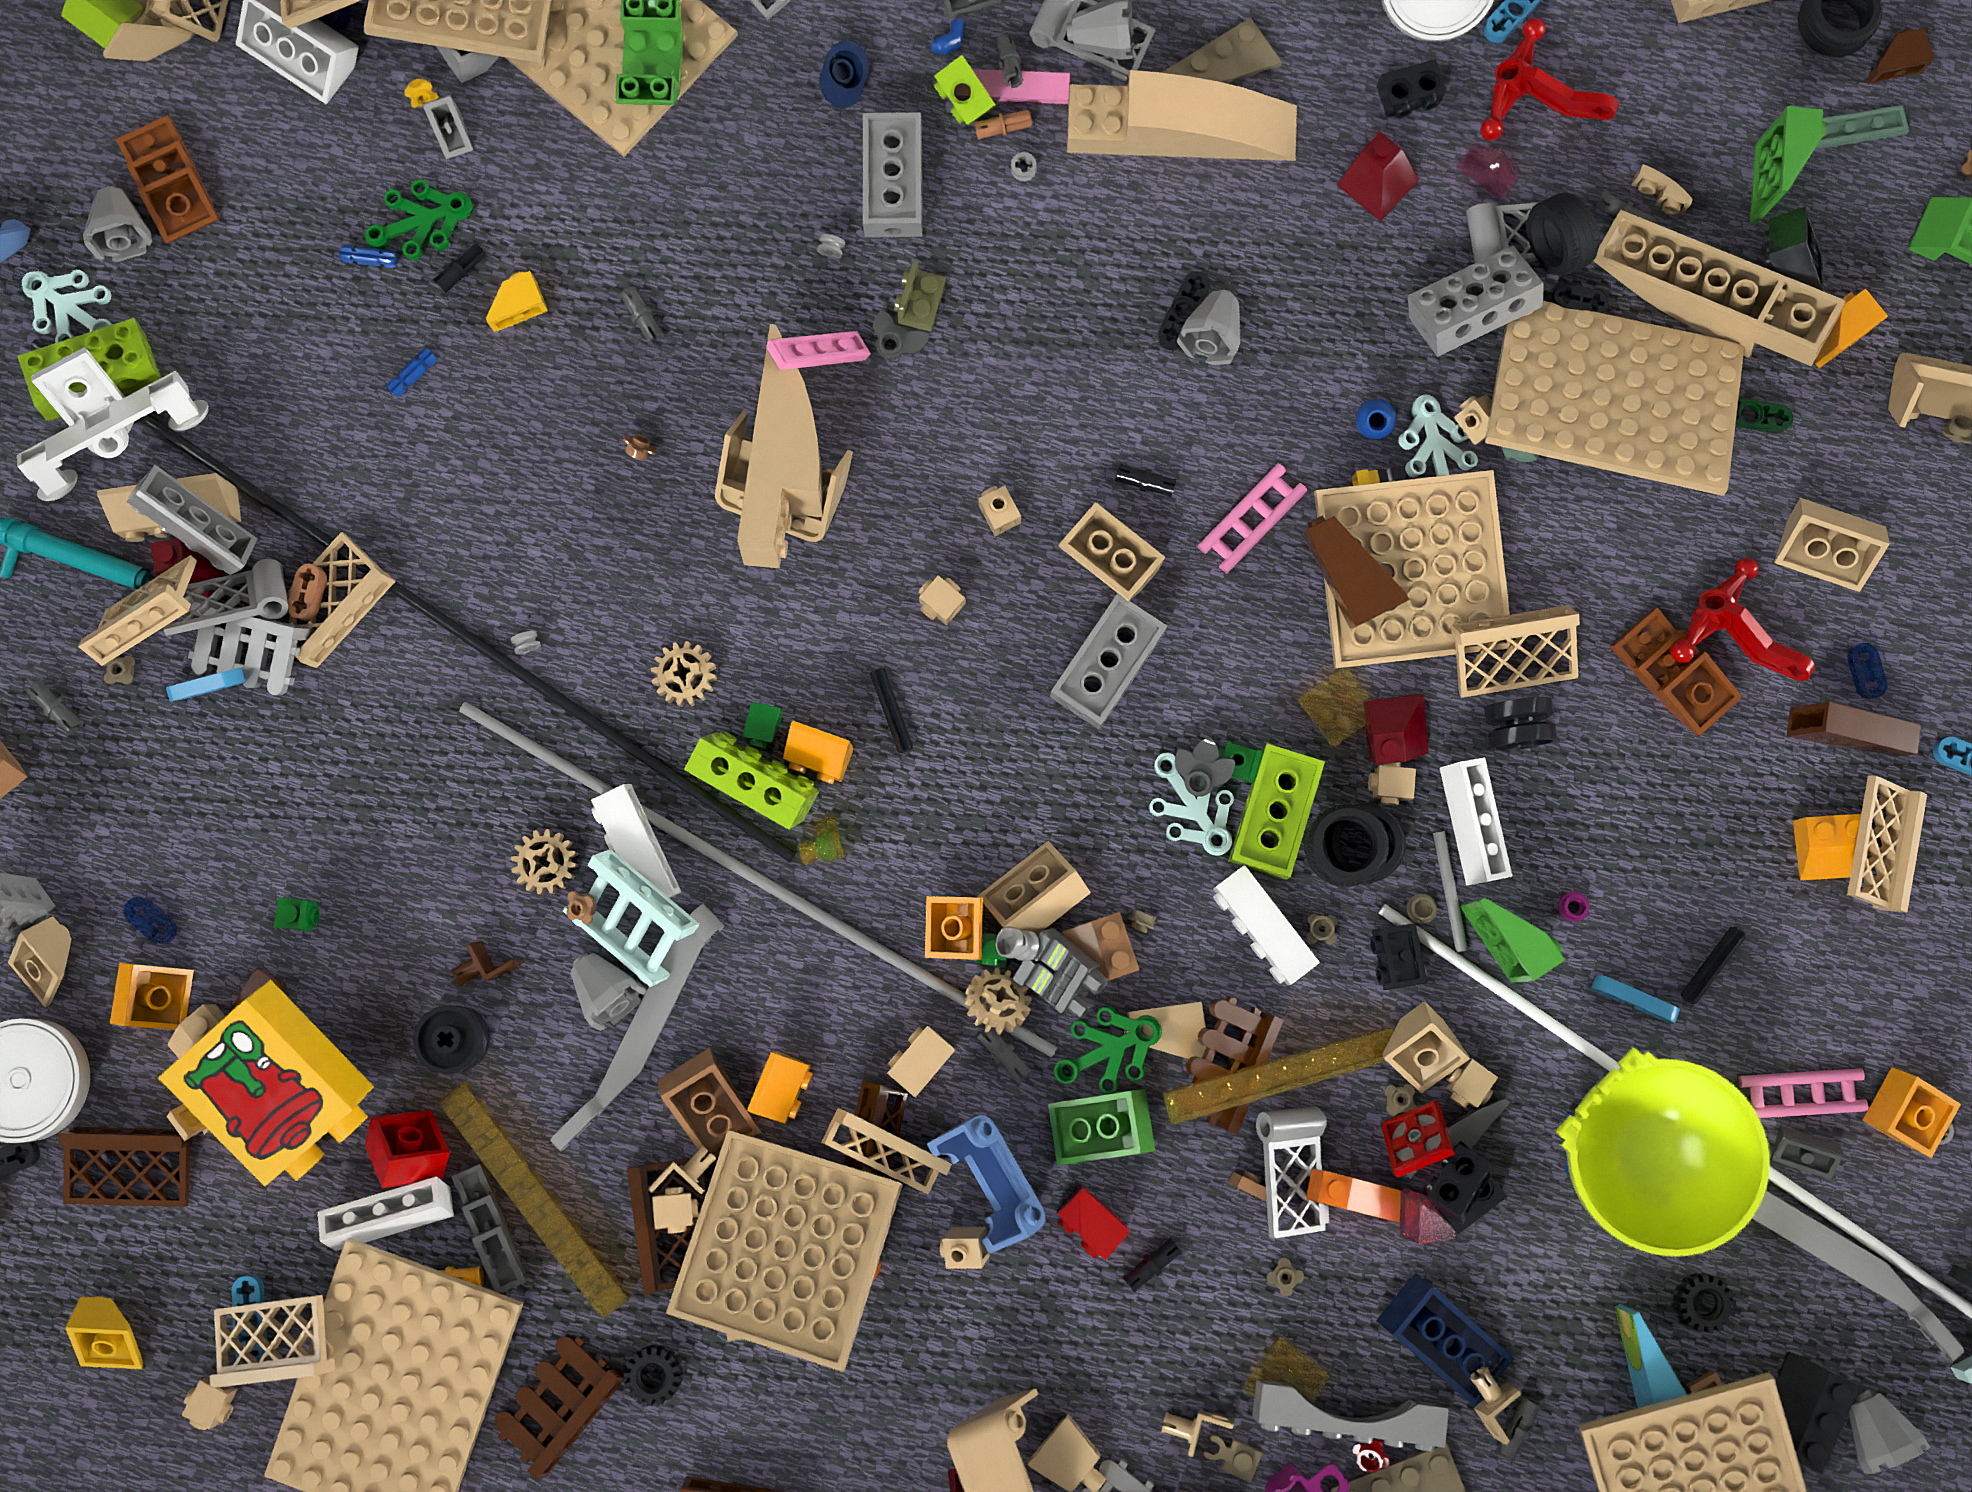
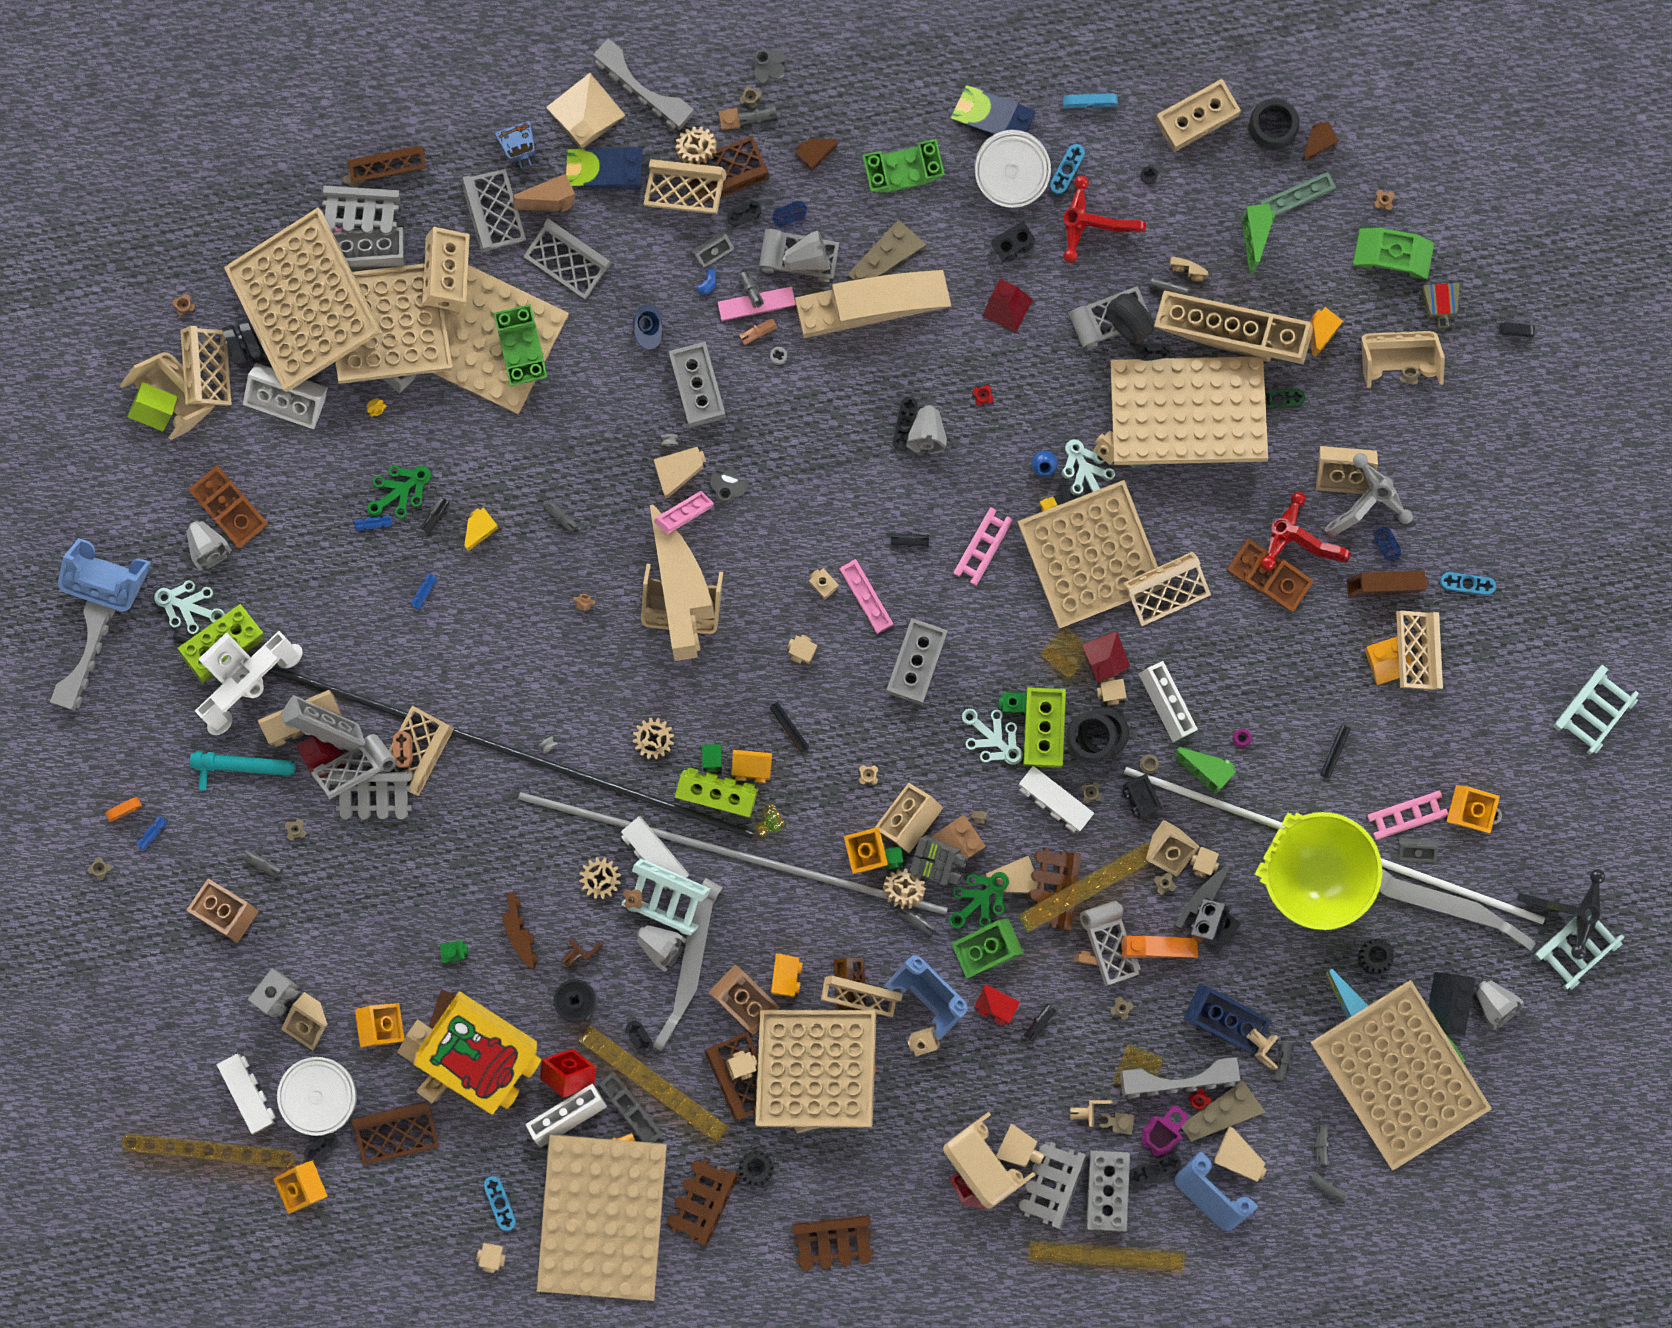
camera: 20 degrees left, 0 degrees up
(102, 1335) = (416, 1234): yellow slope -> none
(141, 613) = (307, 797): tan fence -> none
(145, 925) = (360, 983): clear blue beam -> none
(205, 685) = (356, 824): beam -> none
(279, 1367) = (523, 1224): tan fence -> none
(396, 922) = (519, 938): none -> reddish brown slope
(448, 126) = (401, 426): light grey slope -> none
(527, 1122) = (635, 1040): none -> black beam
(690, 1171) = (744, 1041): tan bracket -> none
(832, 290) = (678, 468): none -> tan slope
(920, 298) = (737, 460): olive bracket -> none
(920, 1060) = (867, 936): tan brick -> none
(961, 73) = (736, 326): lime brick -> none
(995, 820) = (864, 778): none -> tan plate
(1017, 944) = (907, 849): light grey wheel -> none
(1053, 529) = (866, 596): none -> bright pink tile
(1112, 552) = (901, 593): tan slope -> none
(1203, 762) = (992, 709): dark grey plate -> none
(1312, 291) = (983, 390): none -> red plate
(1352, 574) = (1055, 570): reddish brown slope -> none
(1417, 1138) = (1178, 903): red piece -> none
(1421, 1220) = (1194, 951): clear pink slope -> none
(1450, 891) = (1164, 748): light grey bar -> none
(1475, 300) = (1087, 373): light grey brick -> none
(1489, 169) = (1076, 282): clear pink slope -> none
(1520, 723) = (1181, 636): black wheel -> none
(1641, 1000) = (1297, 785): dark azure beam -> none
(1643, 45) = (1145, 170): none -> black bush
(1794, 248) = (1279, 291): slope -> none
(1890, 600) = (1368, 499): none -> light grey piece

